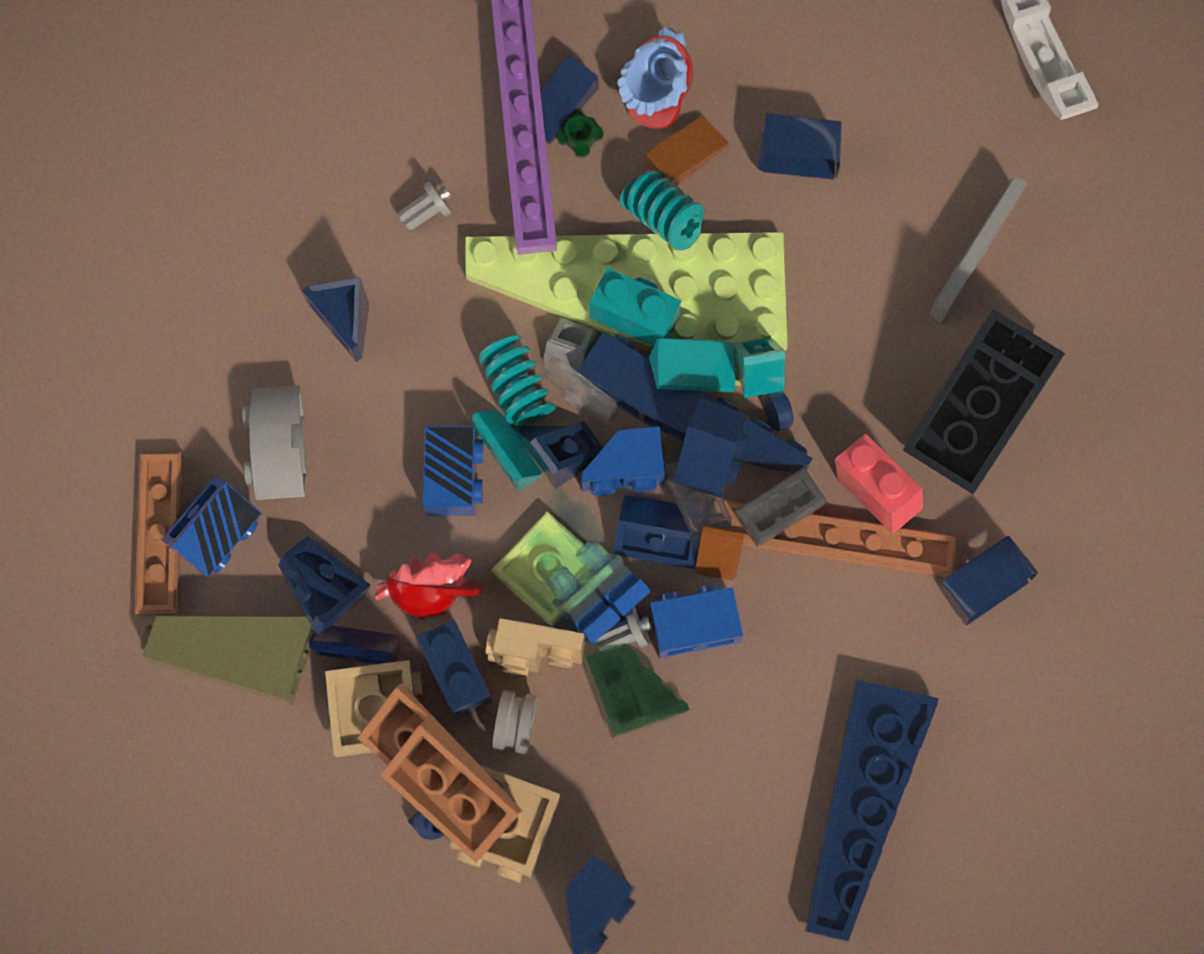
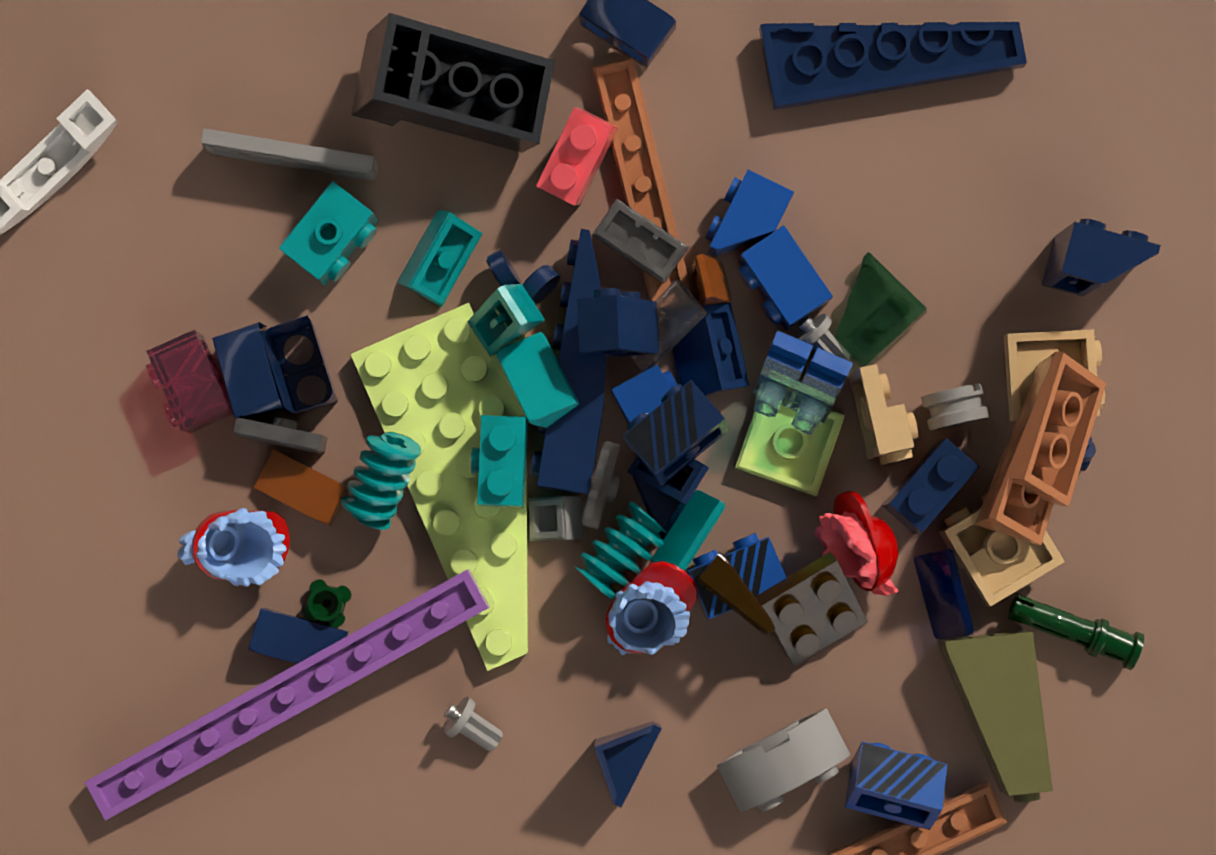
camera: 115 degrees left, 10 degrees up
(255, 762) = (1094, 636): none -> dark green pin
(321, 583) = (904, 652): dark blue wing -> none
(394, 519) = (812, 608): none -> dark brown plate
(440, 448) = (726, 584): none -> dark brown slope
(455, 383) = (651, 609): none -> light blue hair
(597, 456) = (675, 431): none -> brick
(738, 149) = (281, 433): none -> flat silver plate
(765, 617) = (752, 214): none -> blue slope
(802, 171) = (274, 342): none -> dark blue piece
(803, 384) = (502, 269): none -> dark blue tile
(814, 92) = (189, 382): none -> clear pink brick
(837, 340) = (439, 257): none -> teal slope
(893, 254) = (330, 234): none -> teal brick

